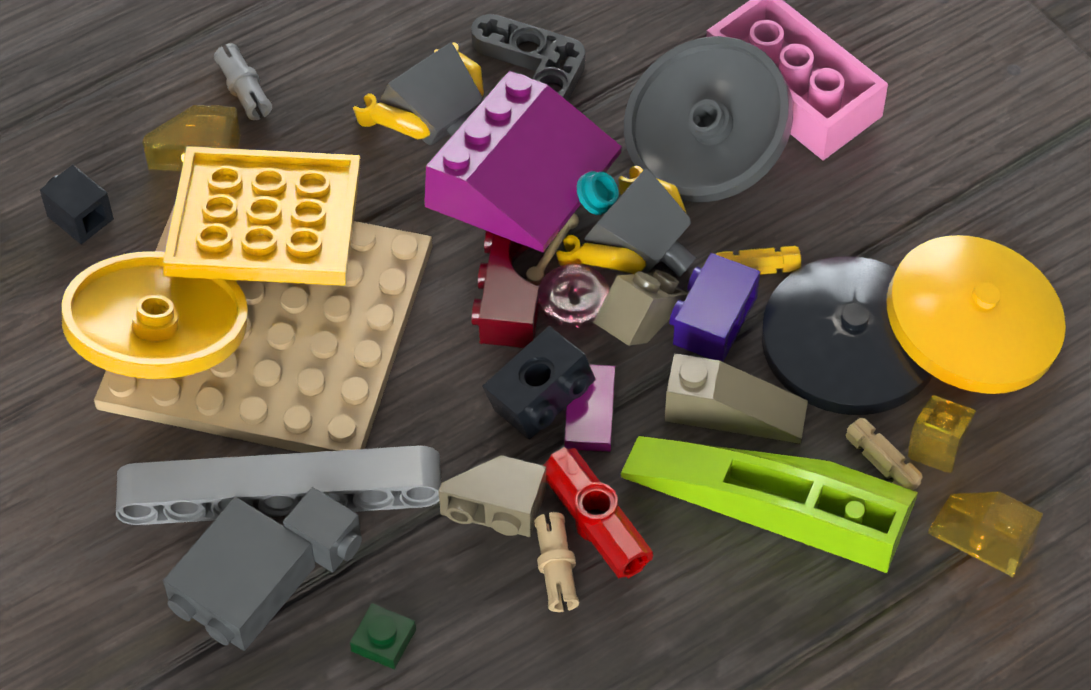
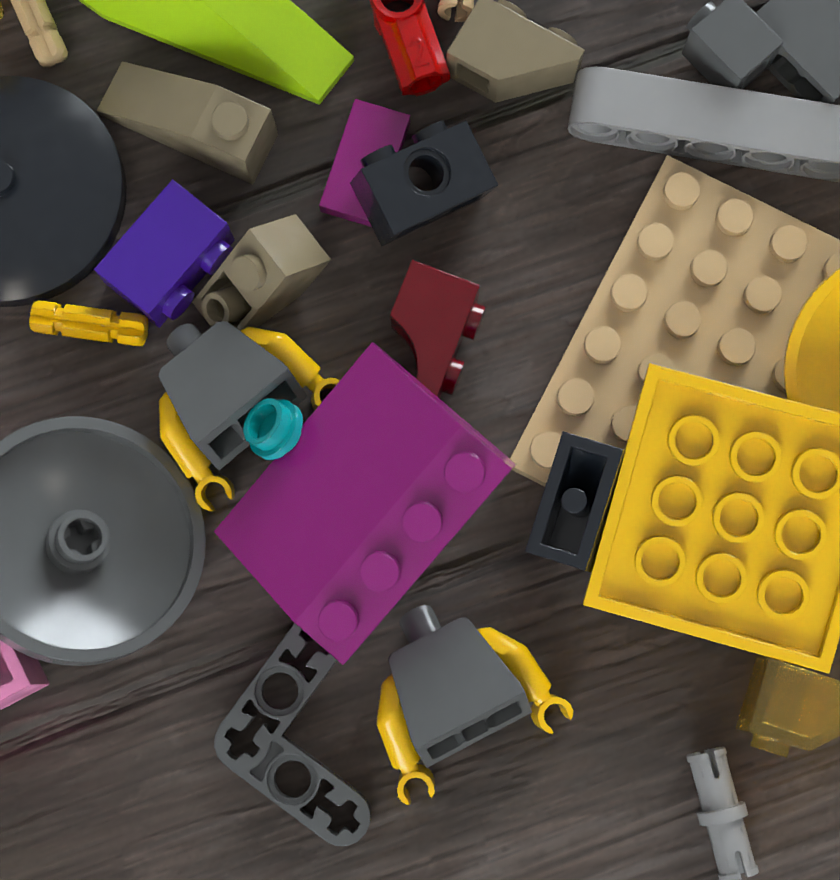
camera: 165 degrees left, 25 degrees up
(379, 194) = (575, 501): none -> black slope
(590, 288) = (324, 308): clear pink gear -> none

